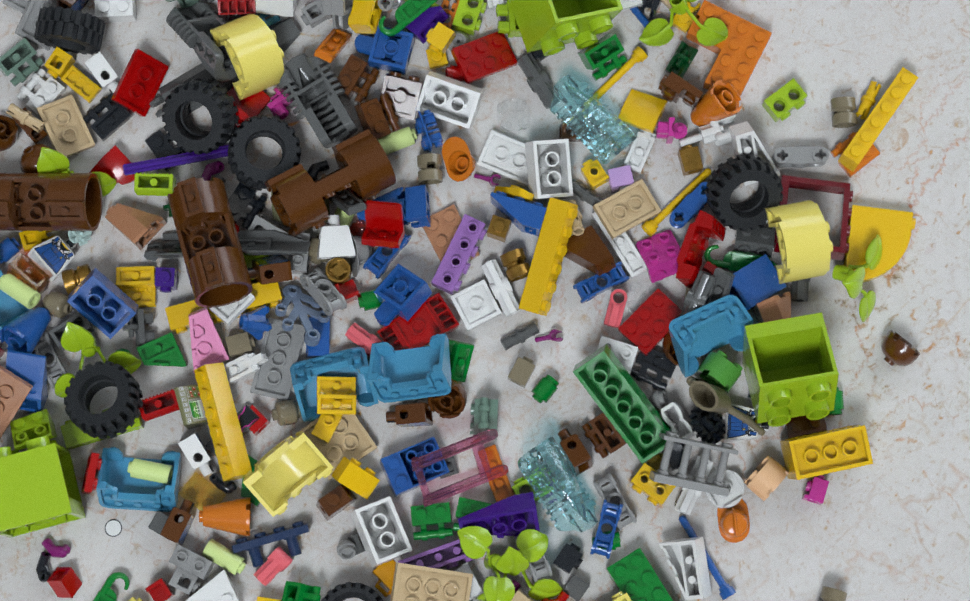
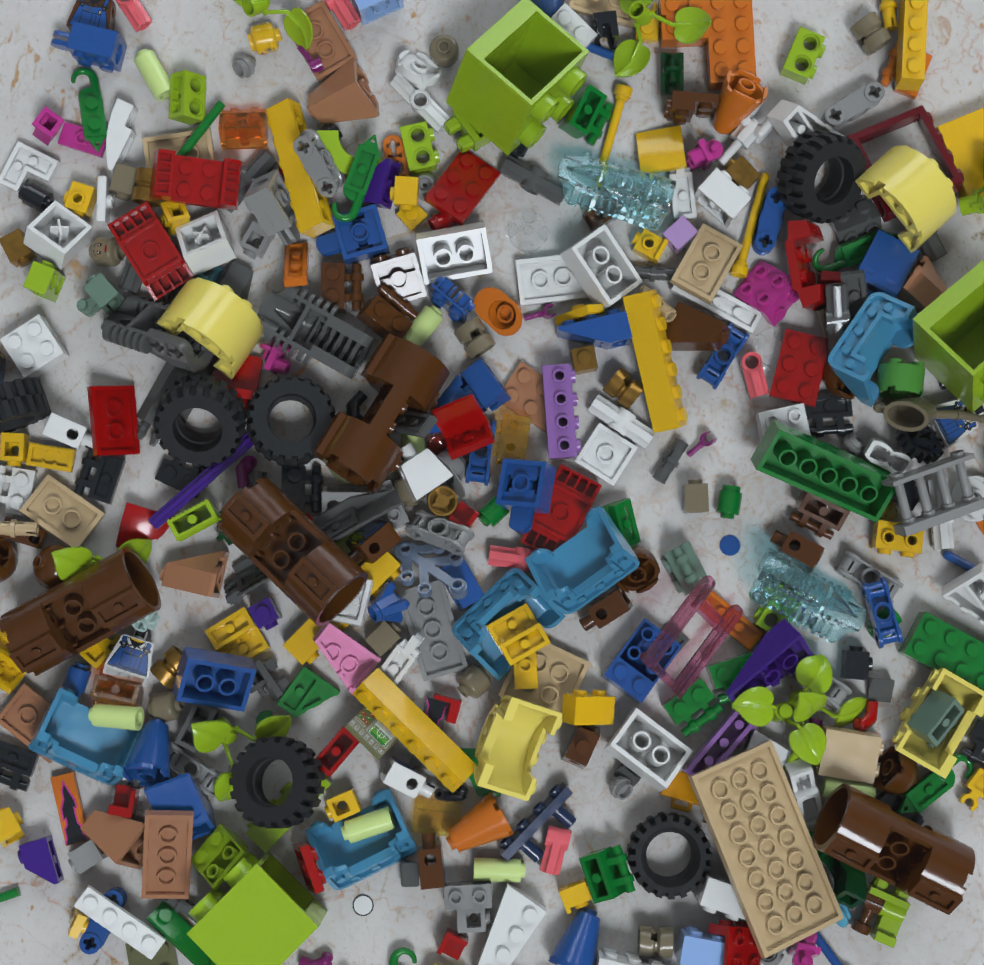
camera: 30 degrees left, 5 degrees up
(135, 441) = (352, 801): none -> yellow brick
(415, 254) = (513, 437): none -> clear yellow brick
(528, 422) = (730, 545): none -> blue sticker
(665, 168) = (722, 197): none -> white brick

